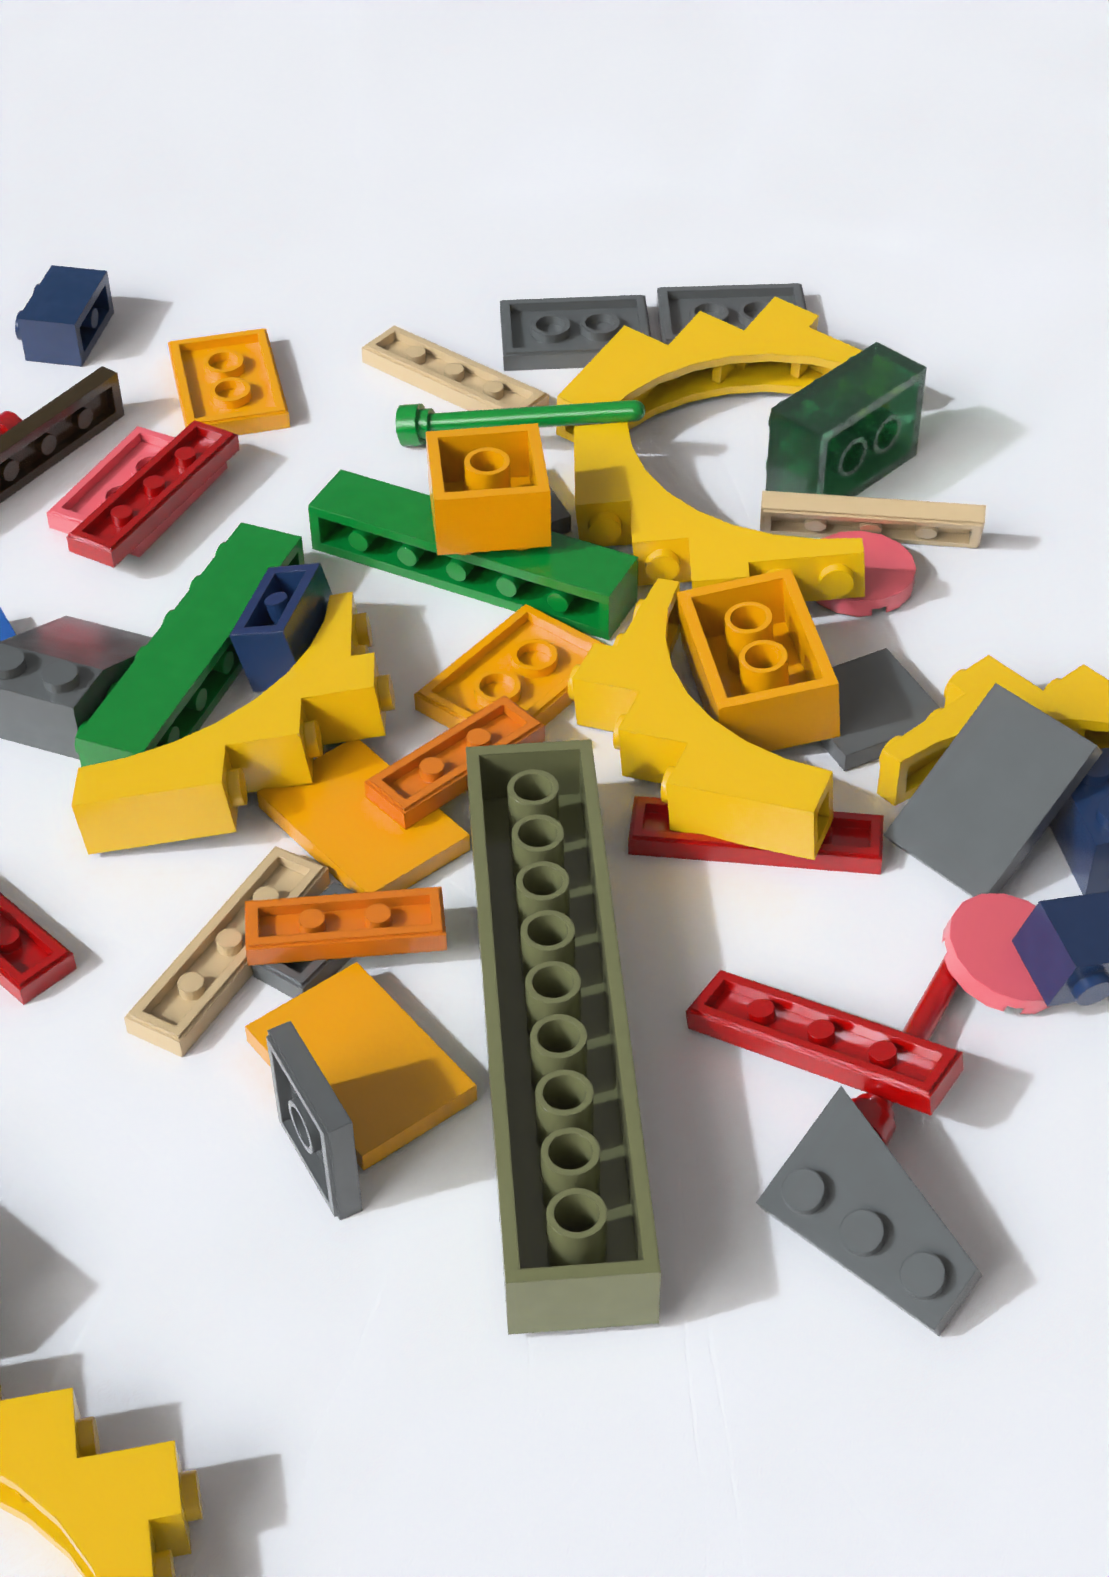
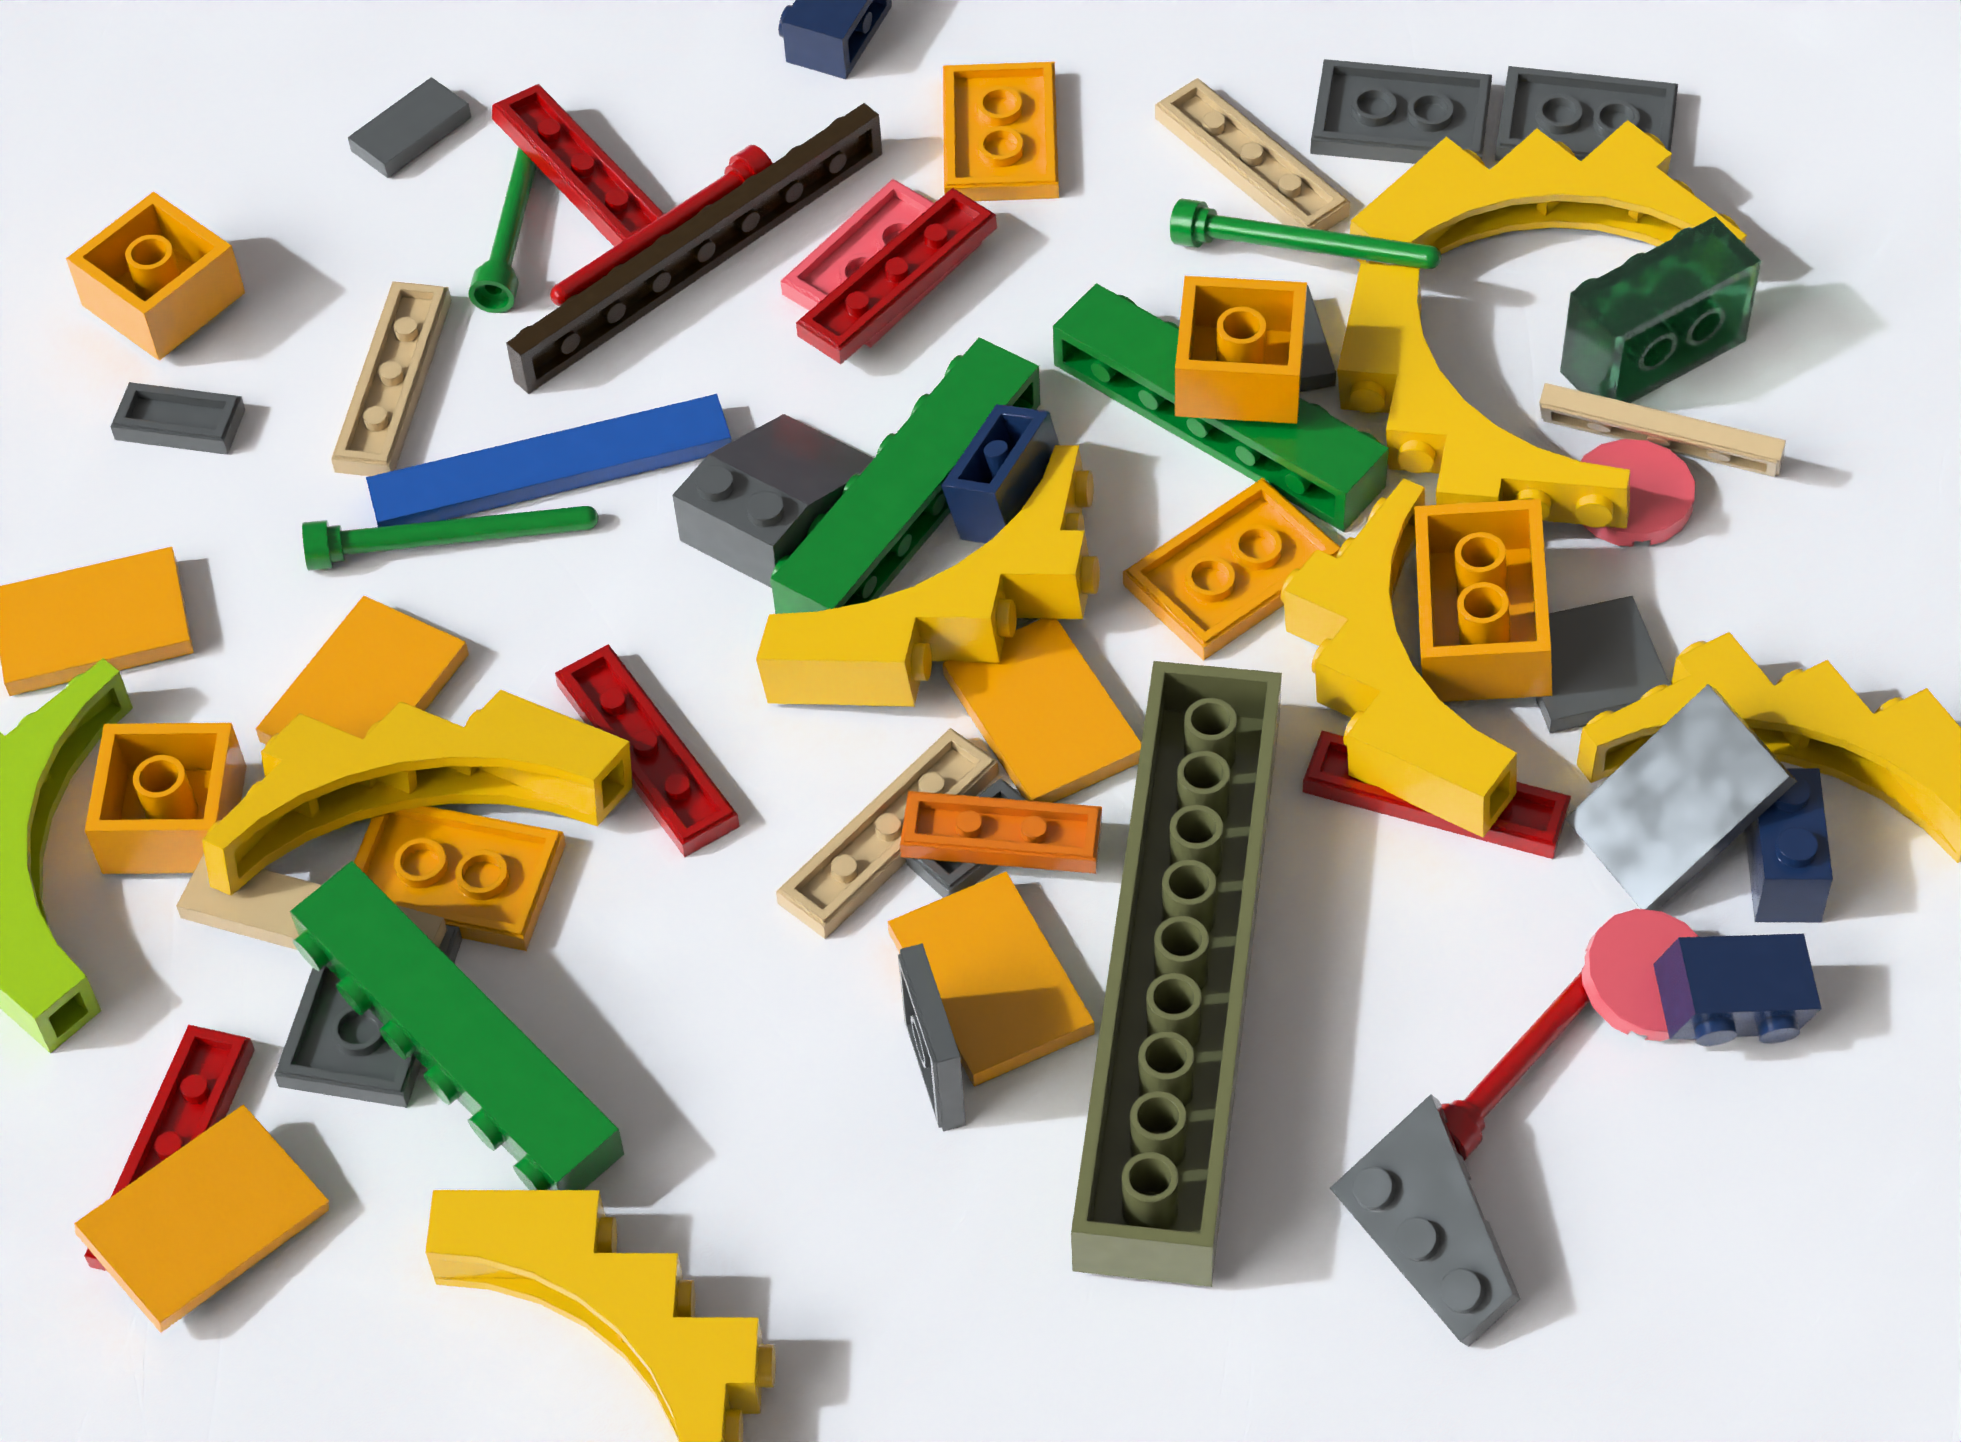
camera: 15 degrees right, 10 degrees up
(439, 768) = (1121, 672): orange tile -> none
(826, 1041) = (1438, 1038): red tile -> none

